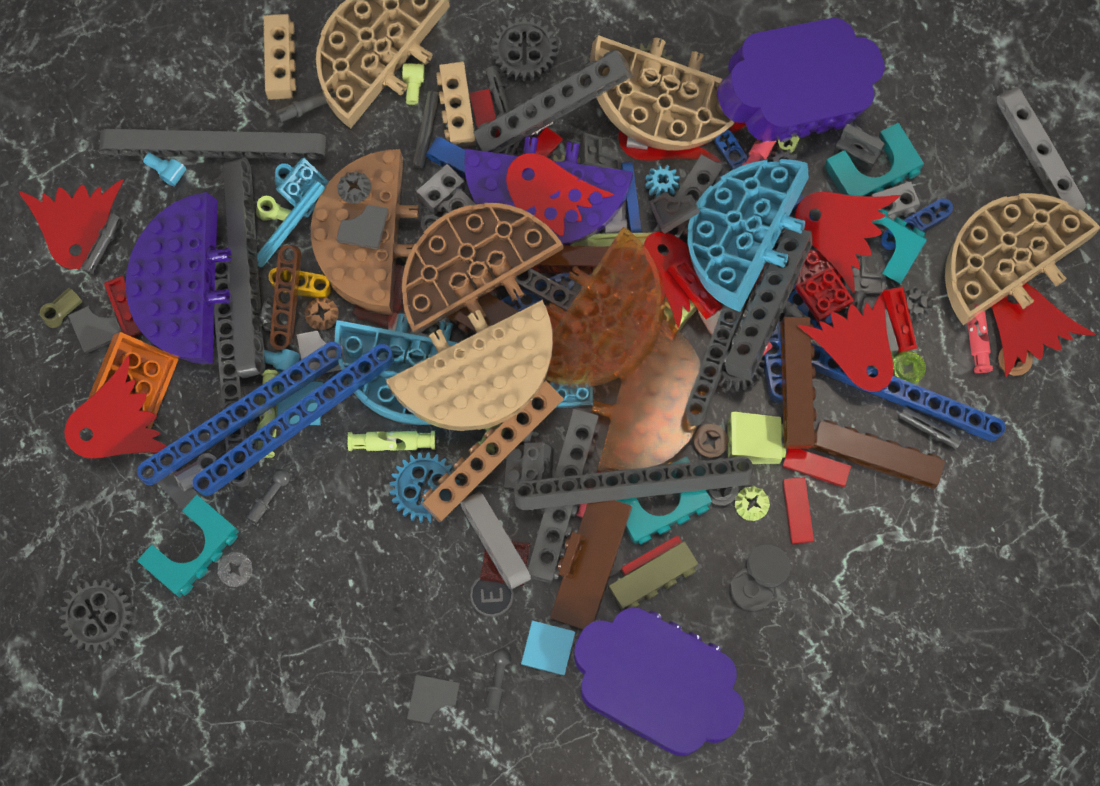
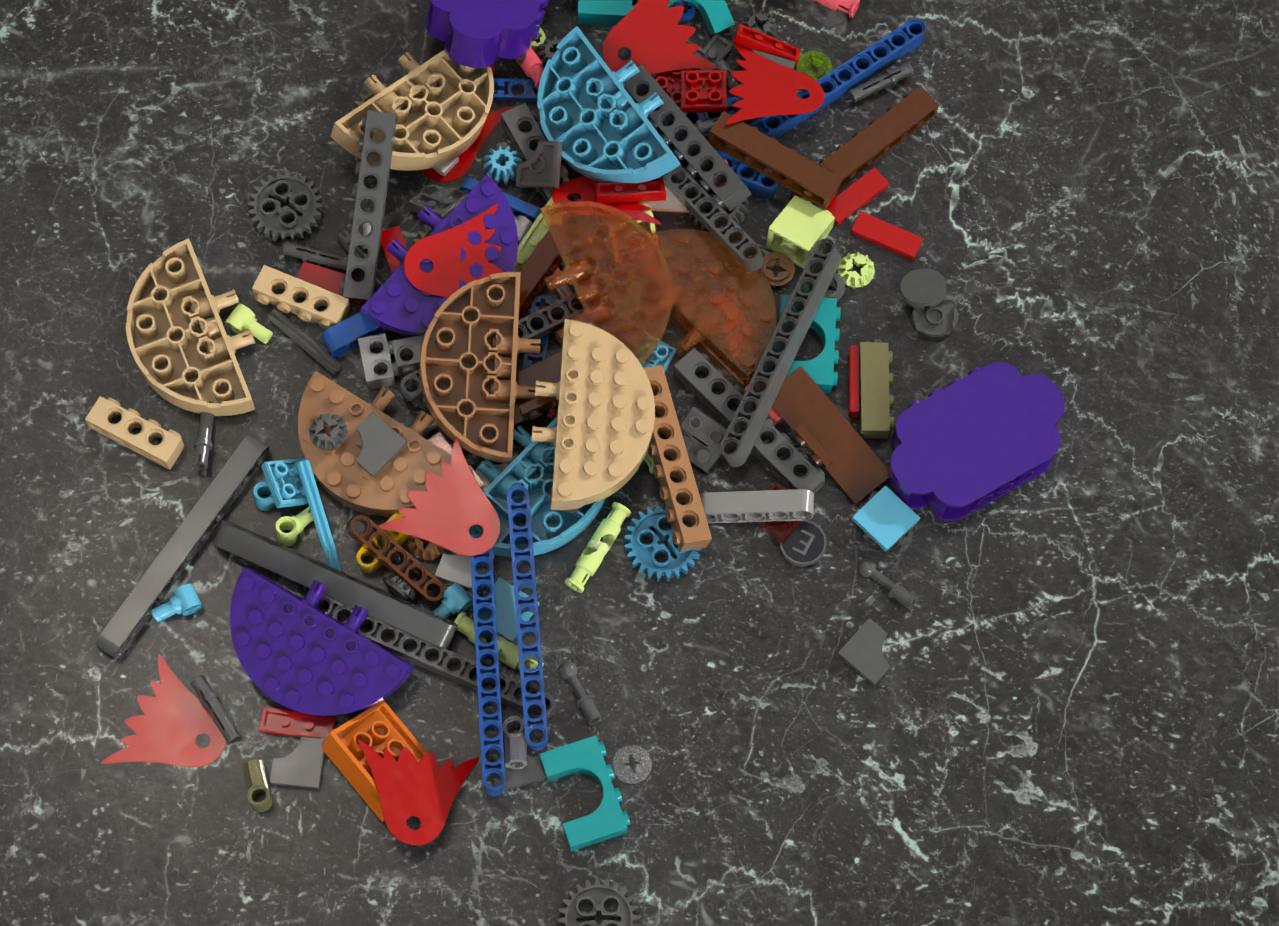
camera: 60 degrees left, 5 degrees down
(344, 312) = (450, 510): none -> piece

